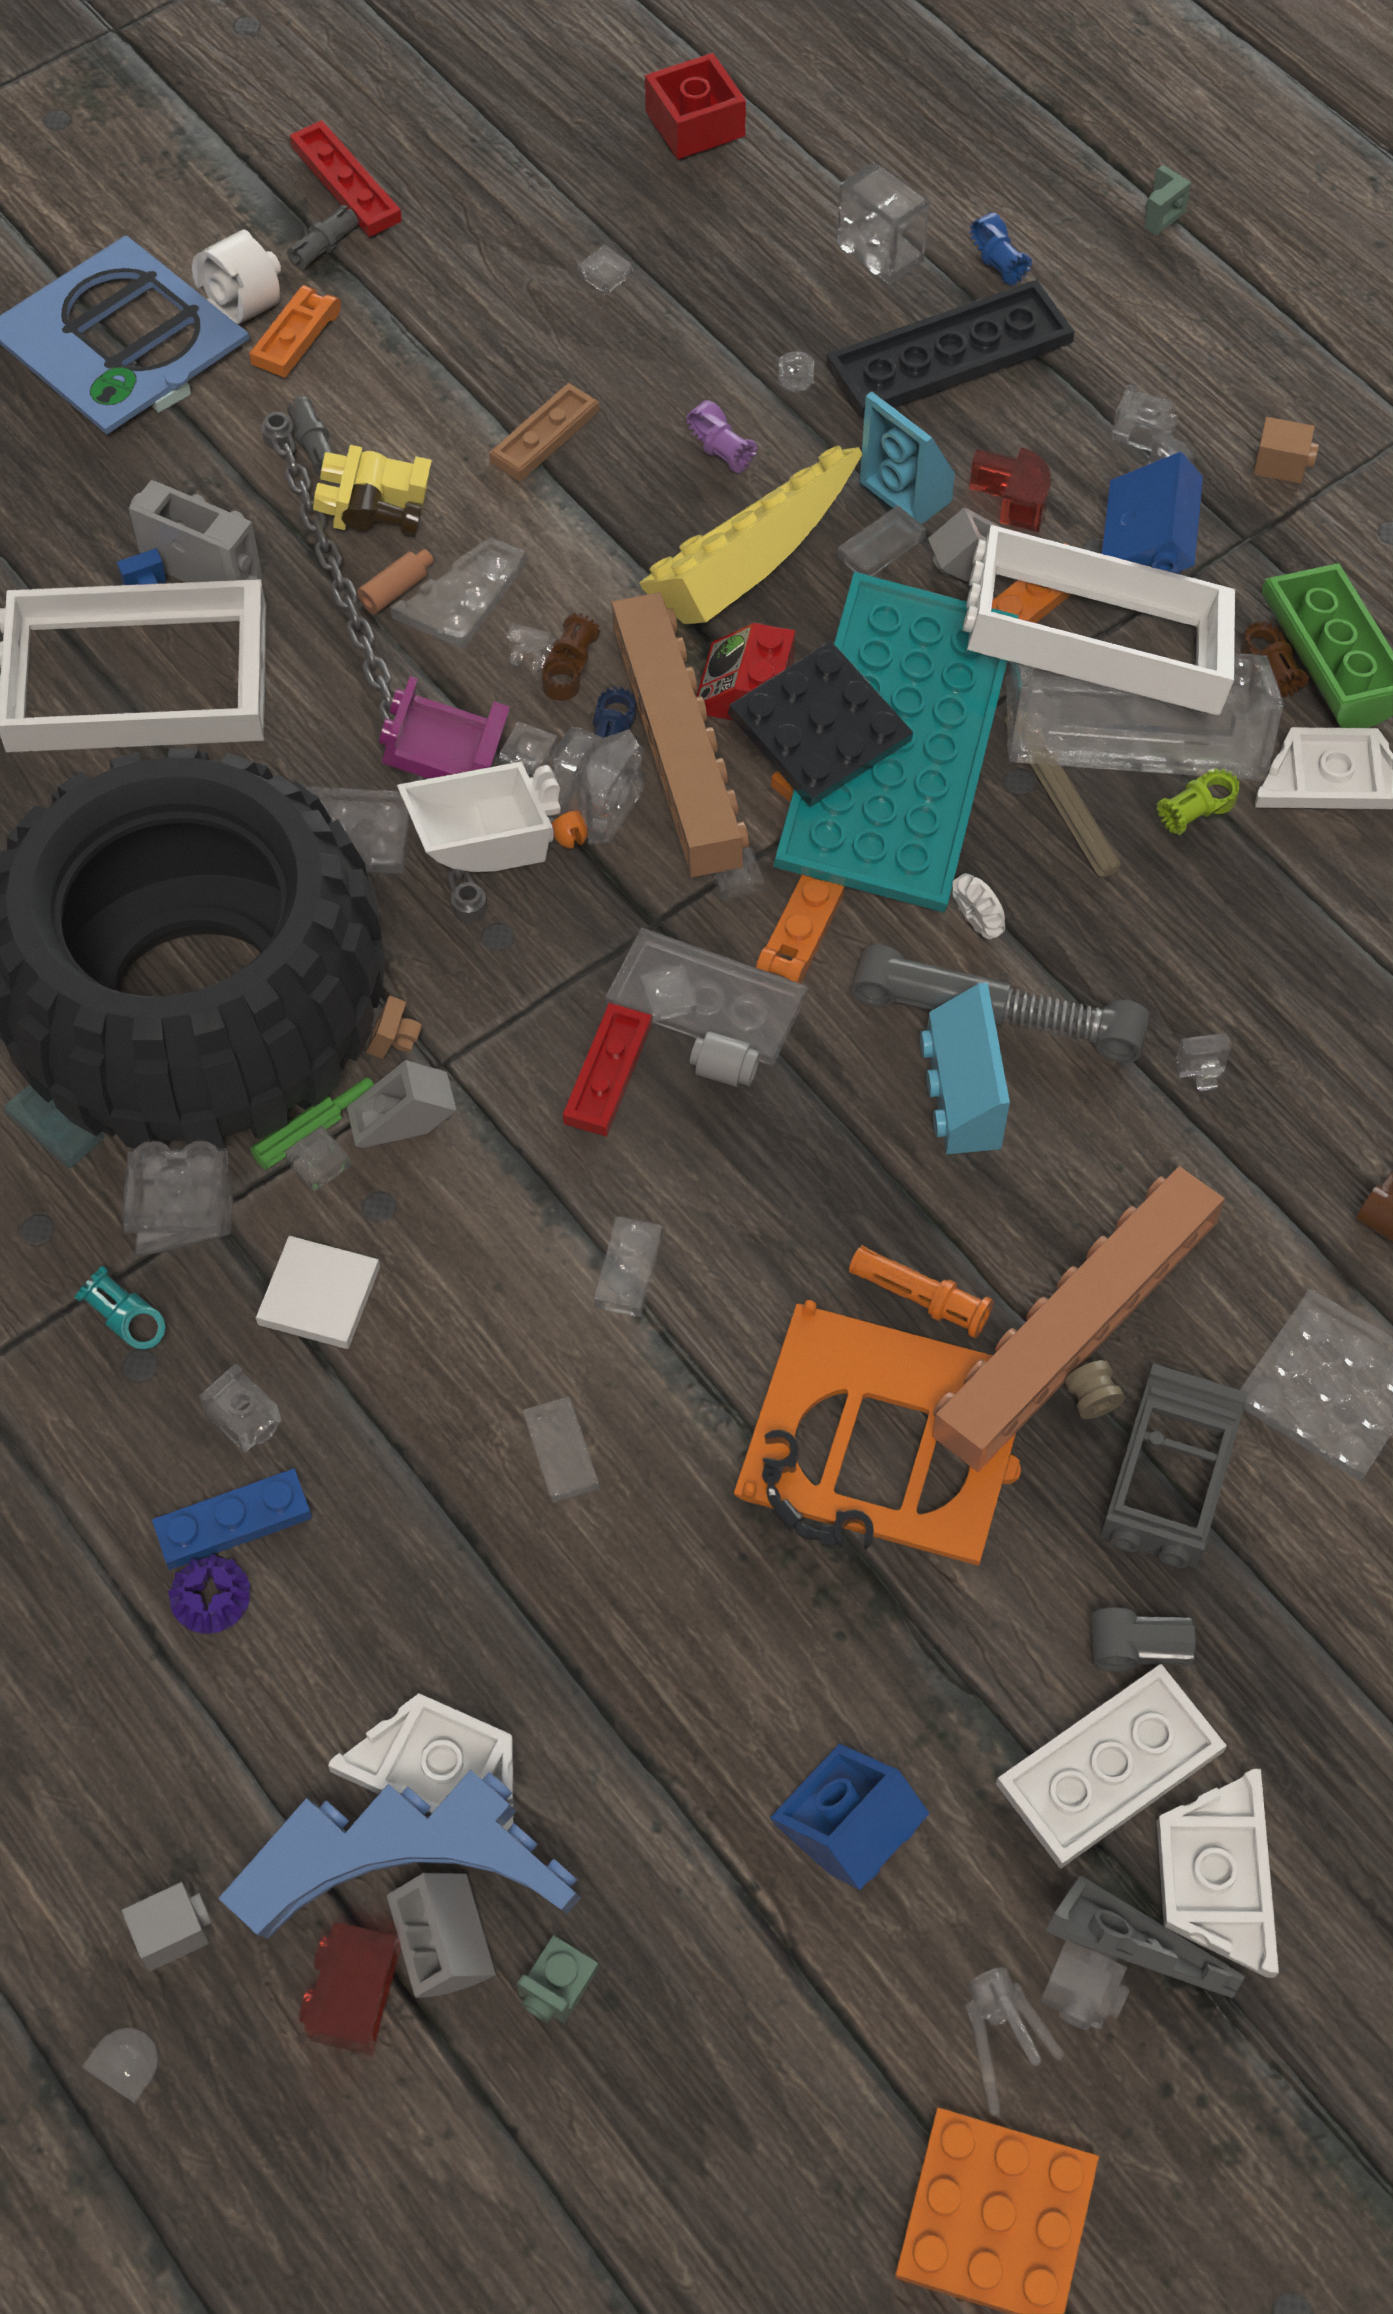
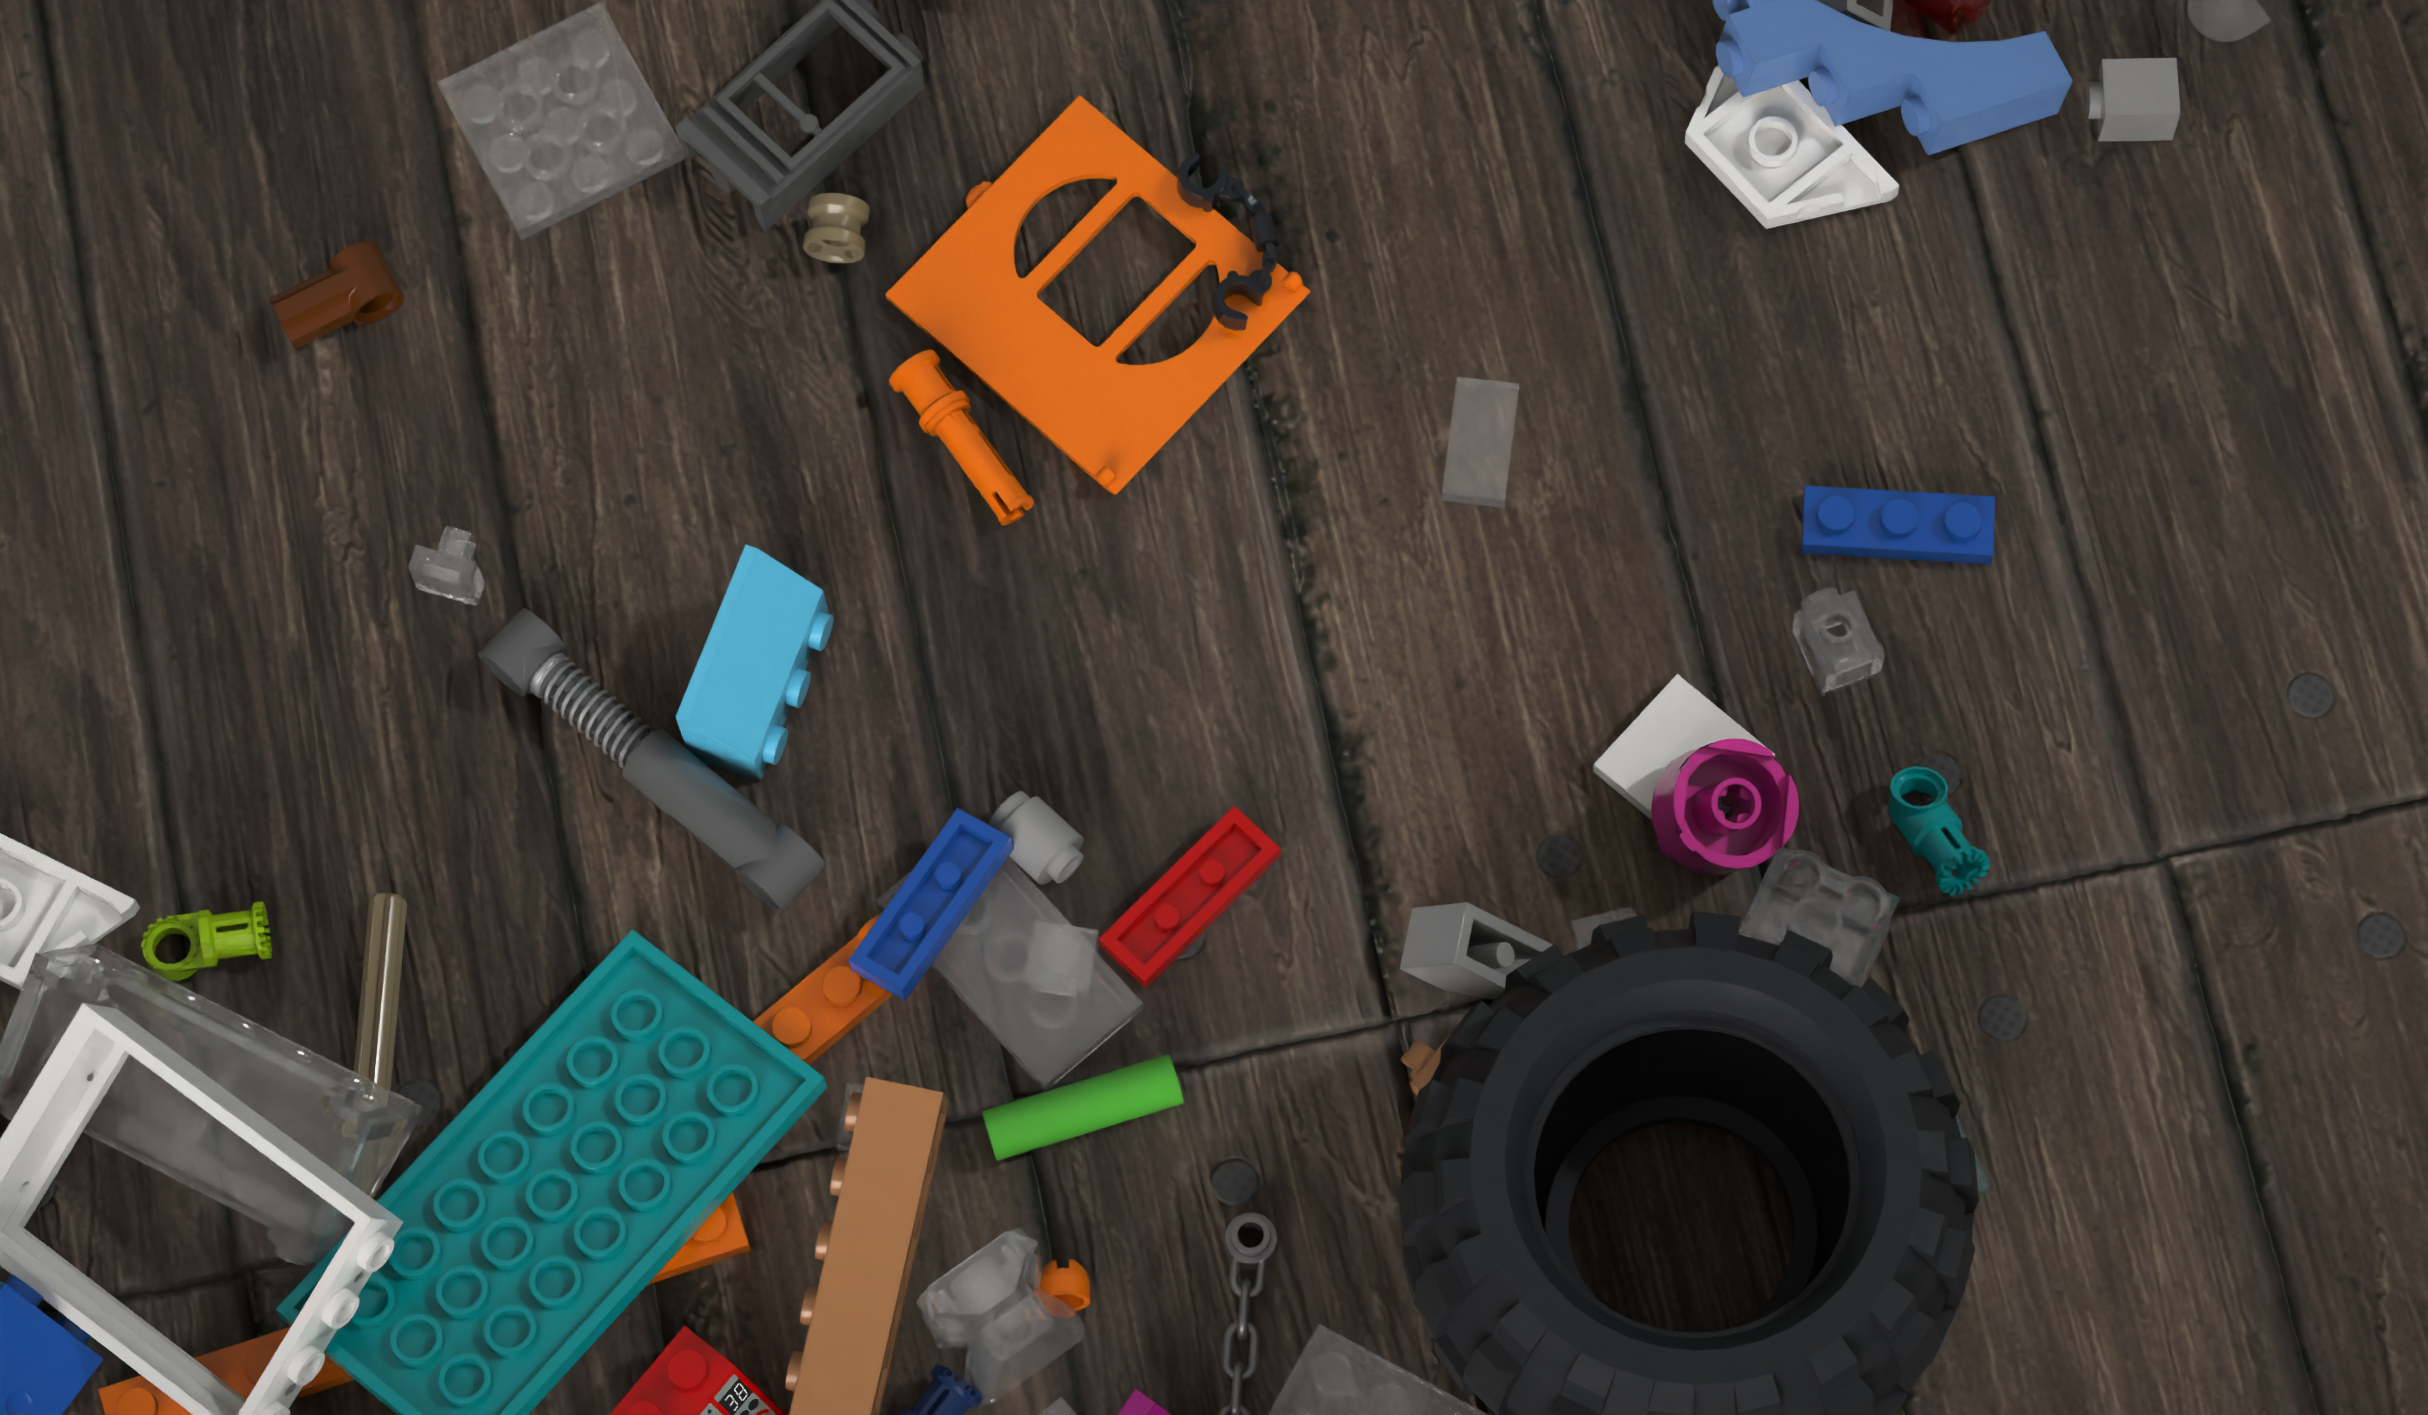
camera: 150 degrees left, 10 degrees up
(224, 1609) = (1970, 470): dark purple gear -> none
(270, 1241) = (1749, 782): none -> dark pink brick
(485, 816) = (1181, 1325): white piece -> none
(610, 926) = (1082, 1107): none -> bright green piece
(628, 1266) = (1292, 630): clear plate -> none
(766, 978) = (931, 904): none -> blue plate
(820, 723) = (654, 1239): black plate -> none
(979, 906) = (598, 894): white gear -> none
(1076, 1318) = (802, 311): nougat brick -> none

